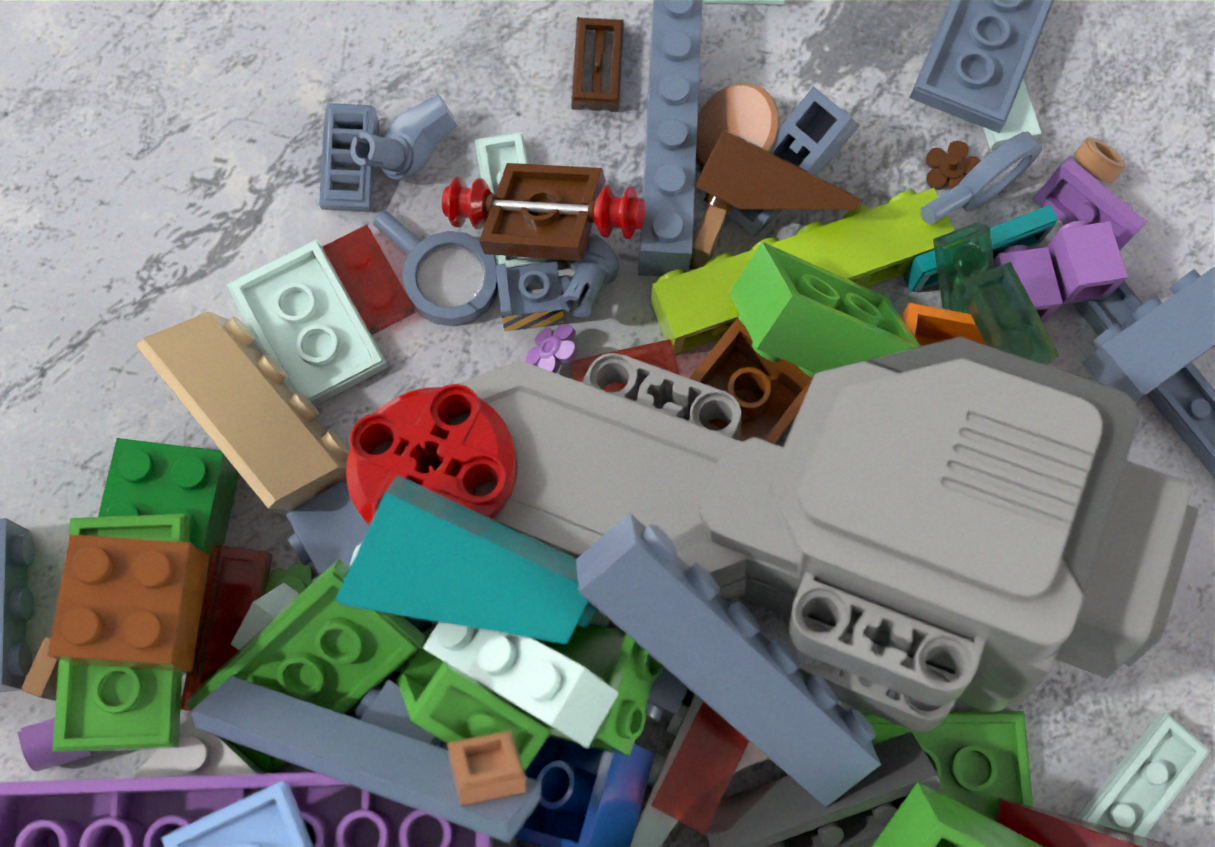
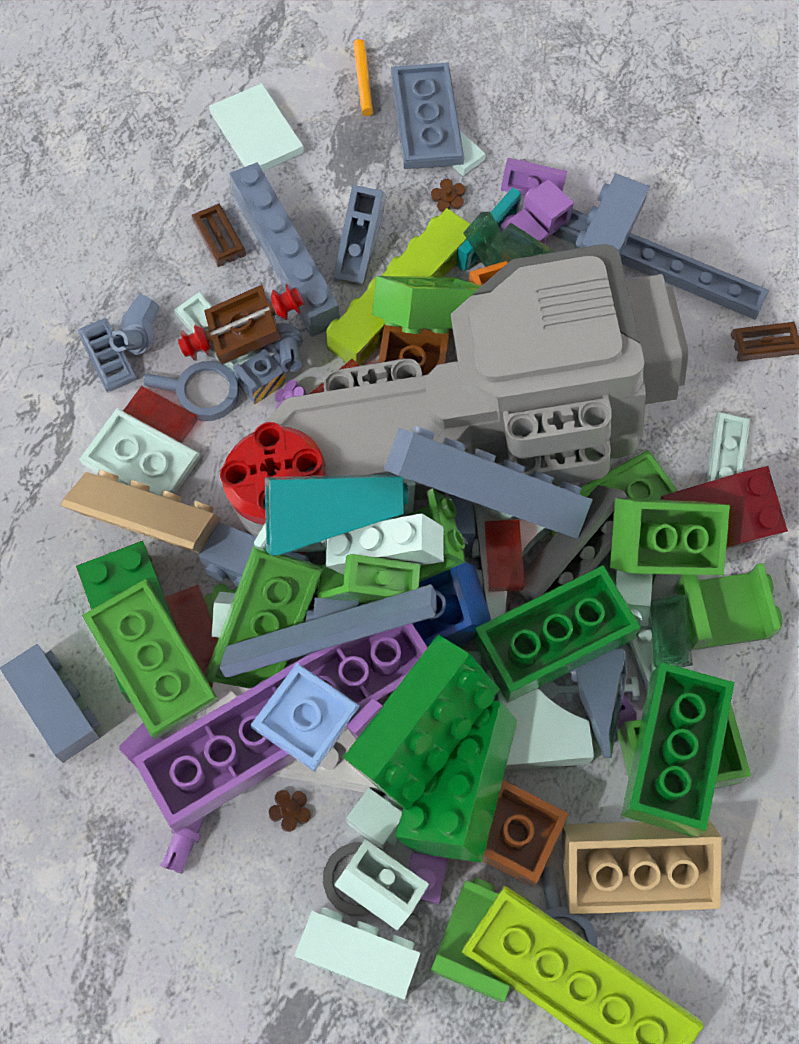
camera: 30 degrees left, 5 degrees down
(43, 674) = (113, 711): medium nougat tile -> none
(129, 603) = (150, 632): dark orange brick -> none
(486, 768) = (400, 591): nougat tile -> none
(707, 236) = (339, 293): medium nougat tile -> none
(741, 110) = (322, 230): nougat piece -> none
(754, 178) = (350, 249): reddish brown slope -> none
(986, 178) = (472, 189): sand blue piece -> none
(1100, 160) = (524, 152): medium nougat tile -> none

